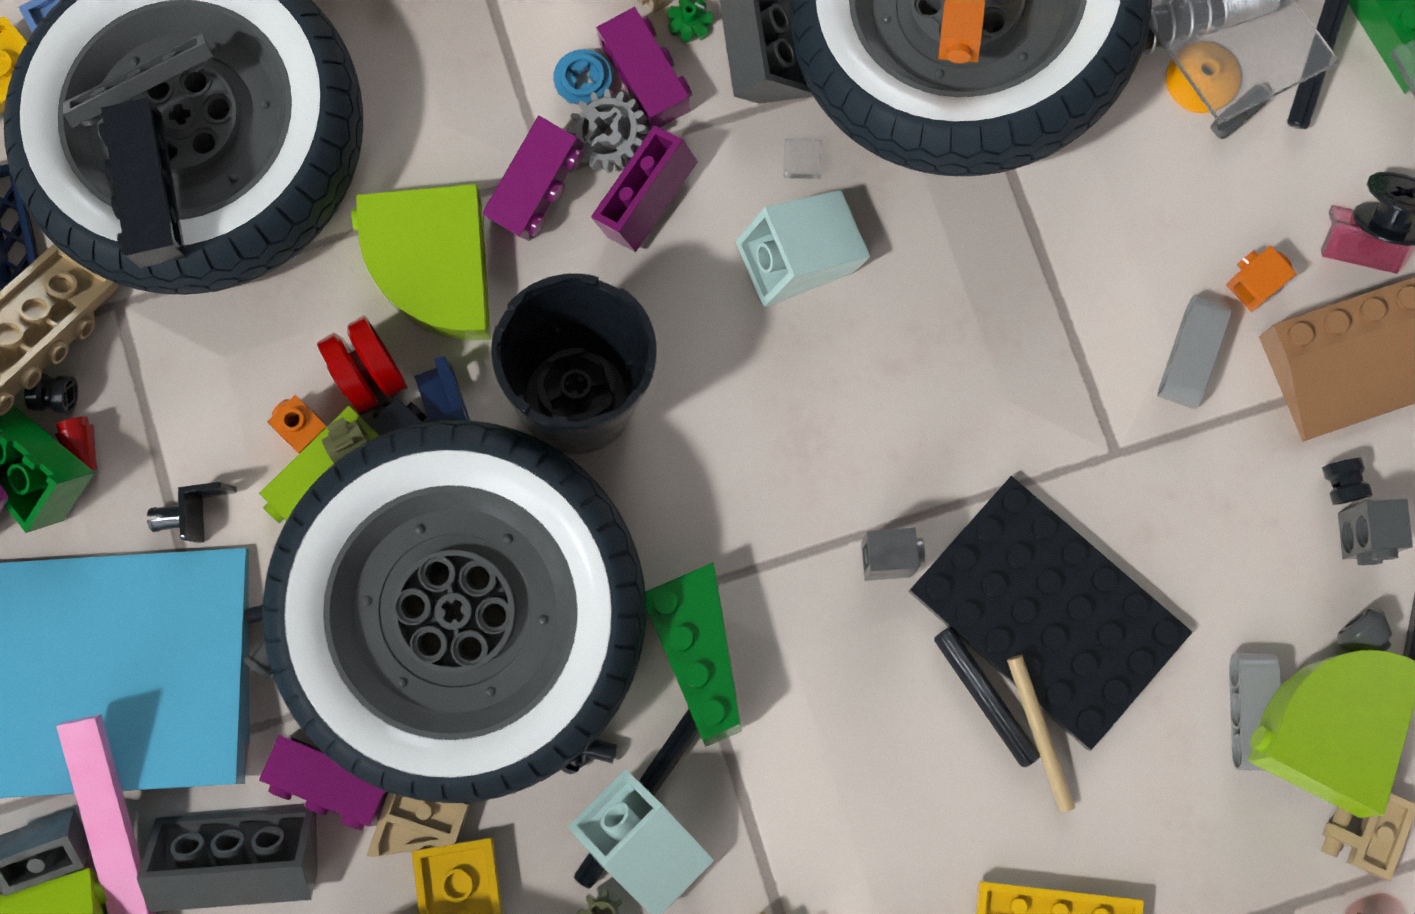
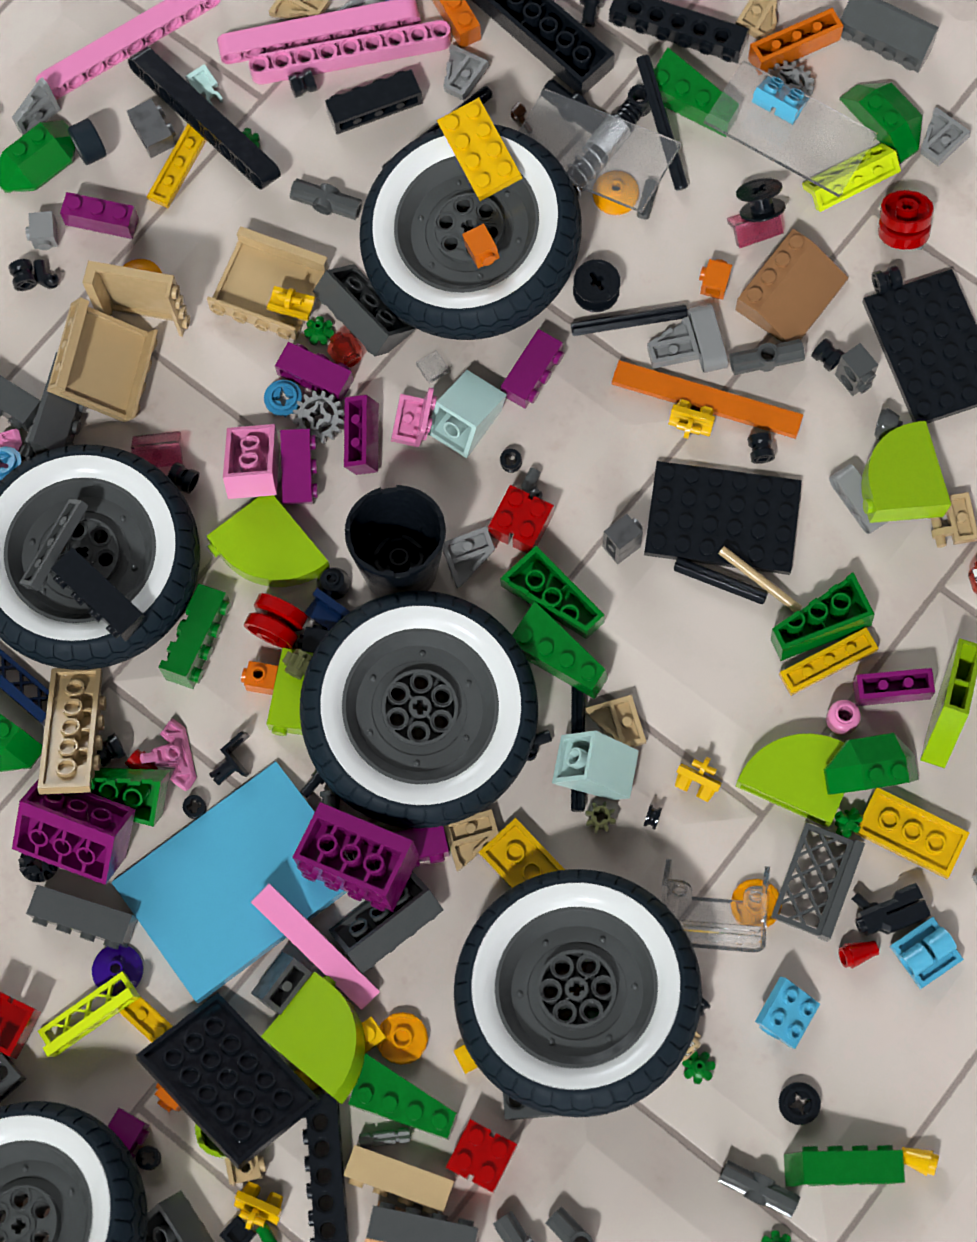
camera: 35 degrees left, 5 degrees down
(104, 527) = (188, 803): none -> black bush
(126, 454) = (174, 755): none -> bright pink piece
(228, 760) = (356, 857): none -> magenta brick
(252, 318) = (195, 637): none -> green wedge
(380, 44) = (158, 448): none -> clear pink panel
(383, 96) = (183, 477): none -> black wheel
(474, 362) = (333, 582): none -> black cone
(475, 133) = (251, 461): none -> bright pink brick
(674, 436) = (467, 553): none -> light grey wing
(703, 63) = (345, 349): none -> clear red head
(718, 800) = (619, 720): none -> tan wing
(720, 212) = (413, 419): none -> bright pink bracket
(745, 556) = (542, 581): none -> green wedge
(776, 438) = (522, 518): none -> red piece
(814, 360) = (508, 453): none -> black bush
(818, 399) = (529, 483): none -> dark grey arm
(929, 244) = (532, 369): none -> magenta brick
(1095, 451) = (690, 420): none -> yellow hips
(1102, 852) = (825, 619): none -> green wedge
(1105, 260) = (629, 320): none -> black axle
(1109, 175) = (602, 274): none -> black piece
(1139, 437) = (723, 403): none -> orange tile
(1141, 334) = (674, 346): none -> light grey wing
(1166, 550) = (761, 448): none -> black wheel
(1281, 439) = (752, 359): none -> dark grey piece

